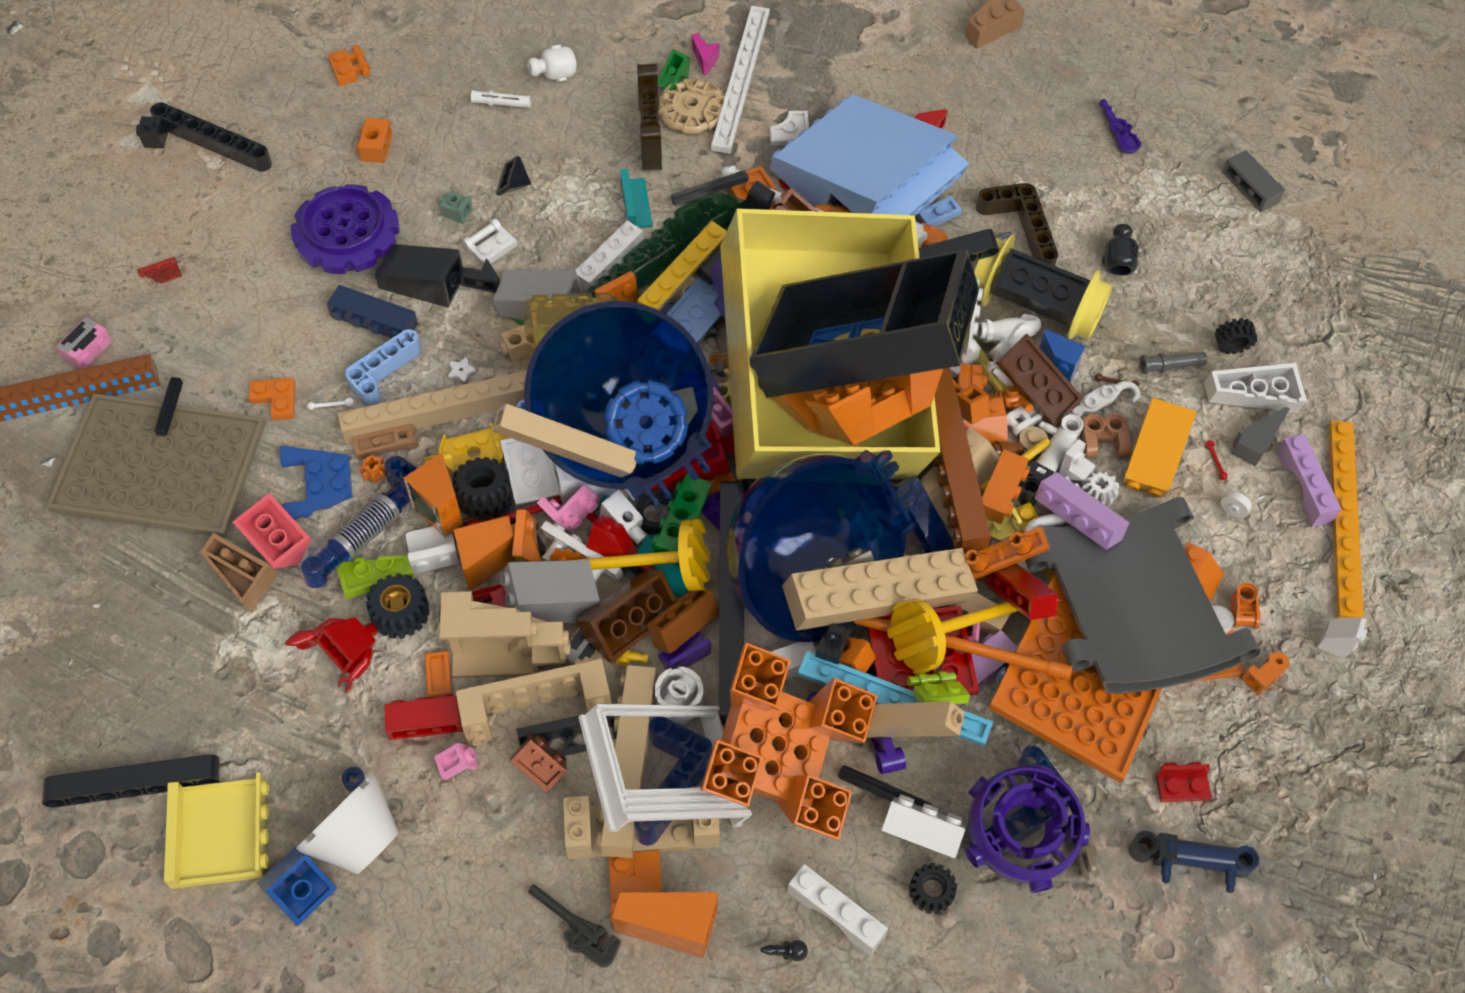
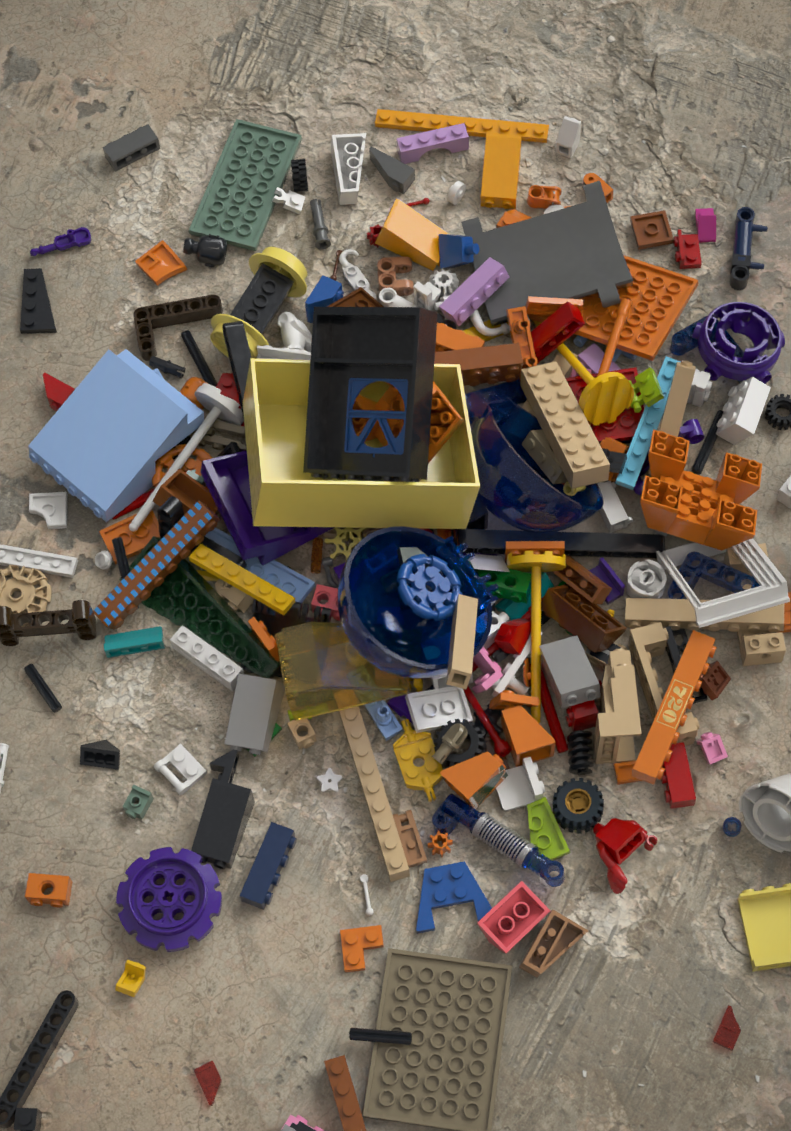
camera: 85 degrees left, 5 degrees up
(108, 755) = (728, 1030): none -> clear red tile
(129, 780) = (751, 1005): black beam -> none
(272, 205) = (131, 978): none -> yellow bracket
(380, 364) = (325, 847): light blue beam -> none
(476, 466) = (451, 741): none -> dark tan arm
(489, 695) = (673, 707): none -> orange brick
(589, 130) = (43, 688): none -> black axle
(695, 192) = (156, 565): none -> dark orange brick
(702, 506) = (489, 562): none -> white sticker
(712, 557) = (537, 547): none -> orange wing
(959, 770) = (700, 388): none -> white brick
(965, 220) = (167, 366): none -> black axle
(1032, 108) = (36, 306): none -> black wing
(1057, 582) = (547, 305): none -> orange plate
(1099, 212) = (160, 263): none -> orange plate
(1142, 493) = (456, 250): none -> blue torso
(1201, 333) = (291, 200): none -> white plate
(1210, 737) = (651, 230): none -> dark orange plate
(1219, 288) = (244, 184): none -> sand green plate
(1228, 810) = (705, 224): none -> dark pink slope
(1275, 554) = (501, 171): none -> light orange slope

